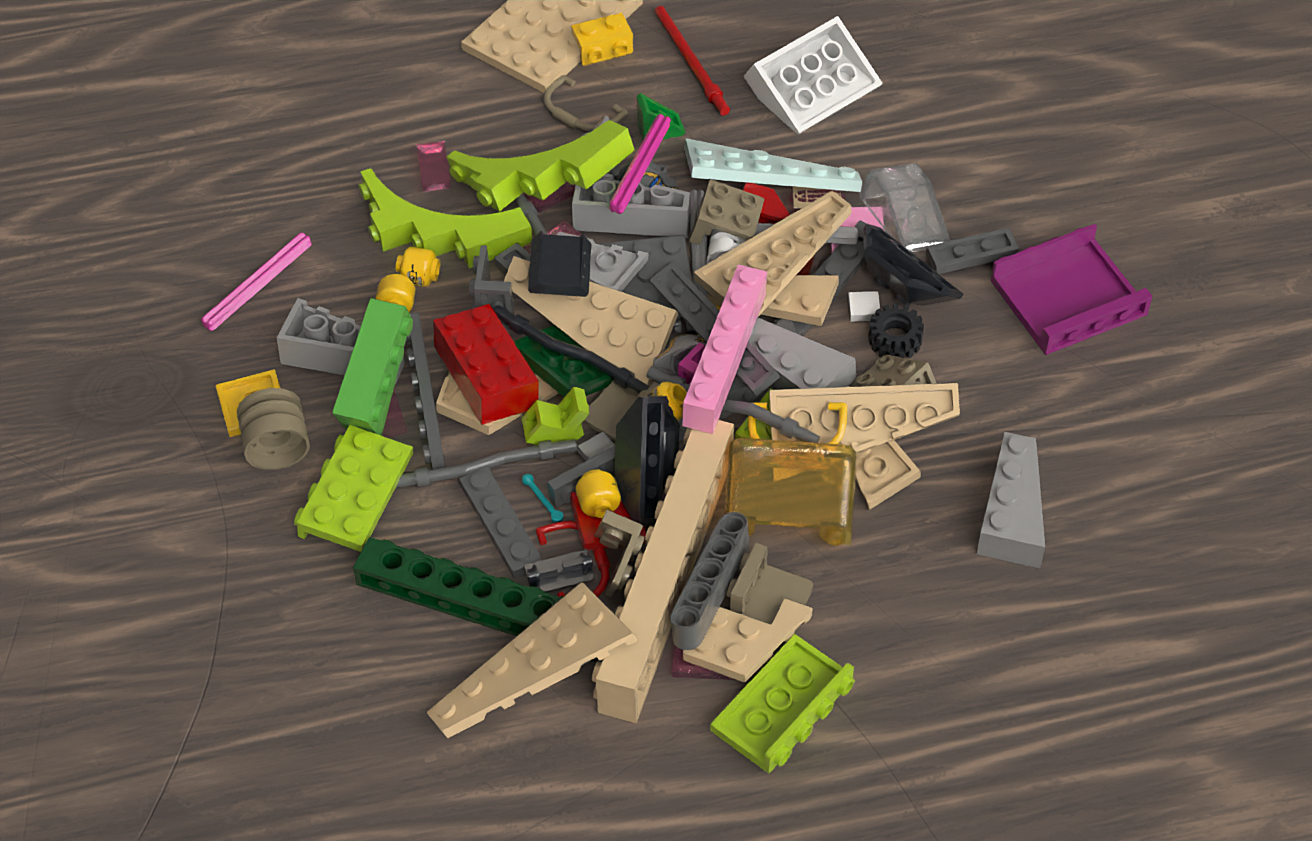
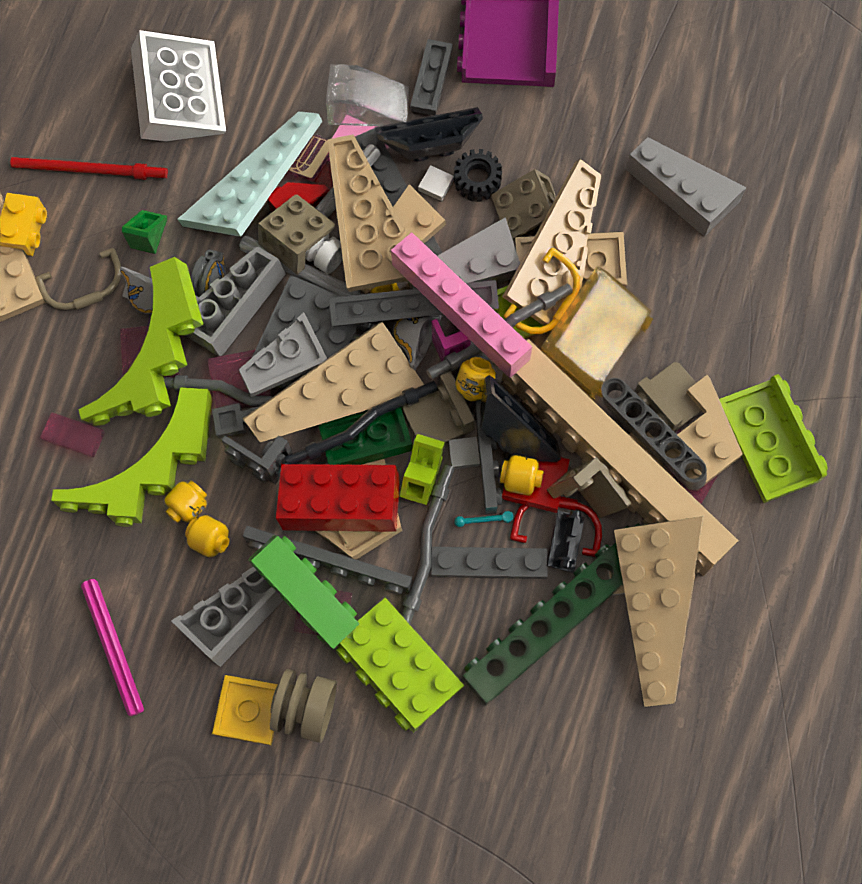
camera: 60 degrees left, 20 degrees up
(560, 265) = (287, 388): black slope -> none
(639, 164) = (204, 268): dark pink axle -> none

